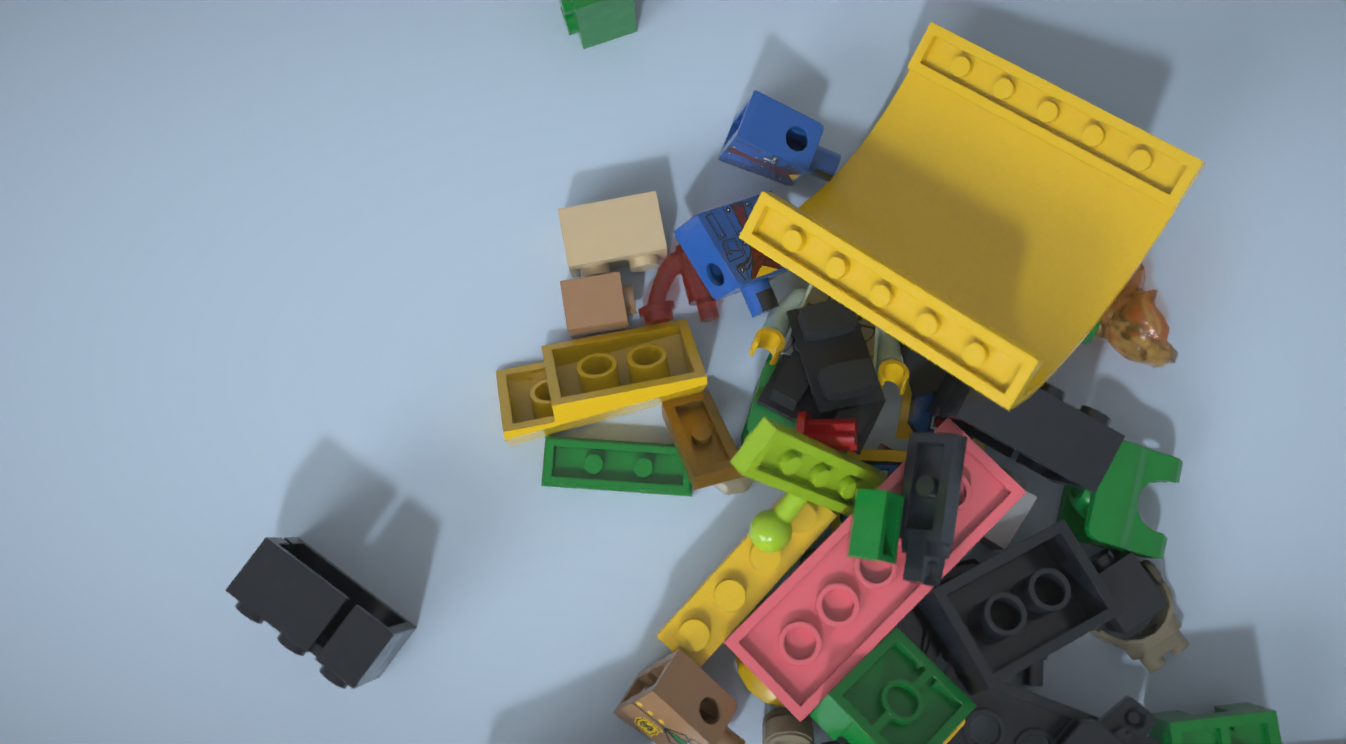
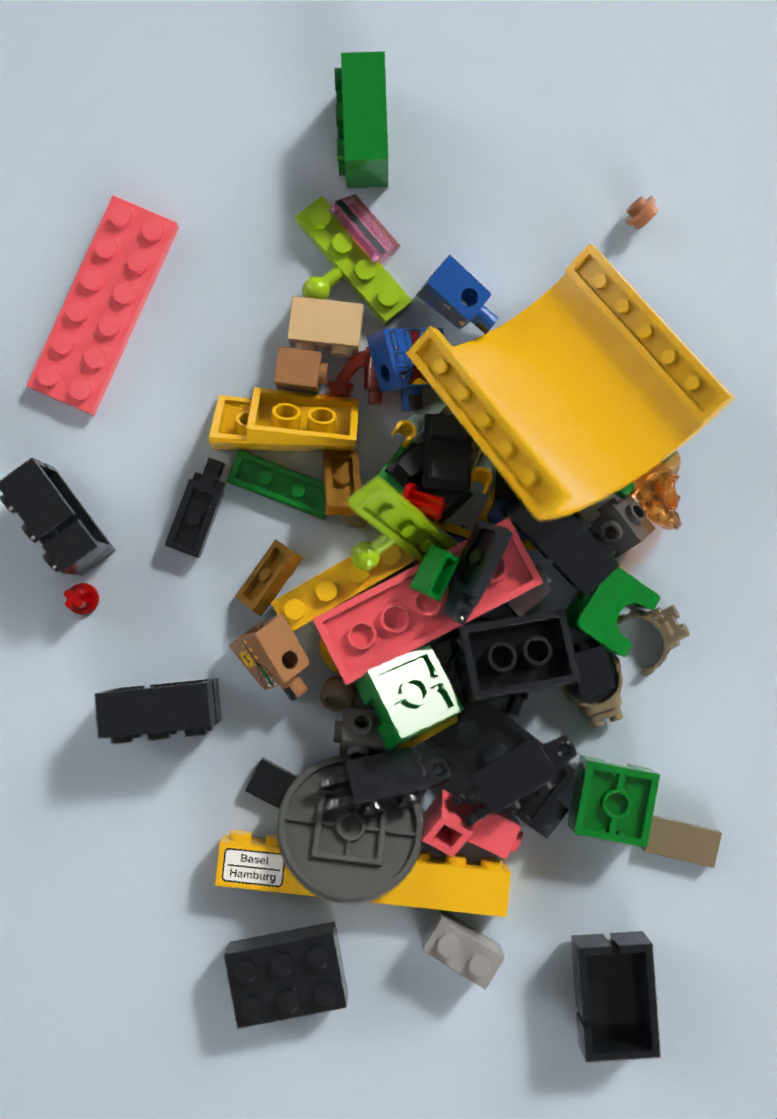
camera: 15 degrees right, 5 degrees up
(303, 300) = (103, 305): none -> coral plate
(389, 710) = (82, 598): none -> red piece
(514, 538) = (197, 510): none -> black hinge
(619, 143) = (350, 262): none -> lime plate
(624, 92) = (364, 228): none -> clear pink tile
(640, 601) = (268, 577): none -> pearl gold plate
(1099, 378) = (622, 524): none -> dark grey brick
(1201, 493) = (667, 624): none -> dark tan helmet

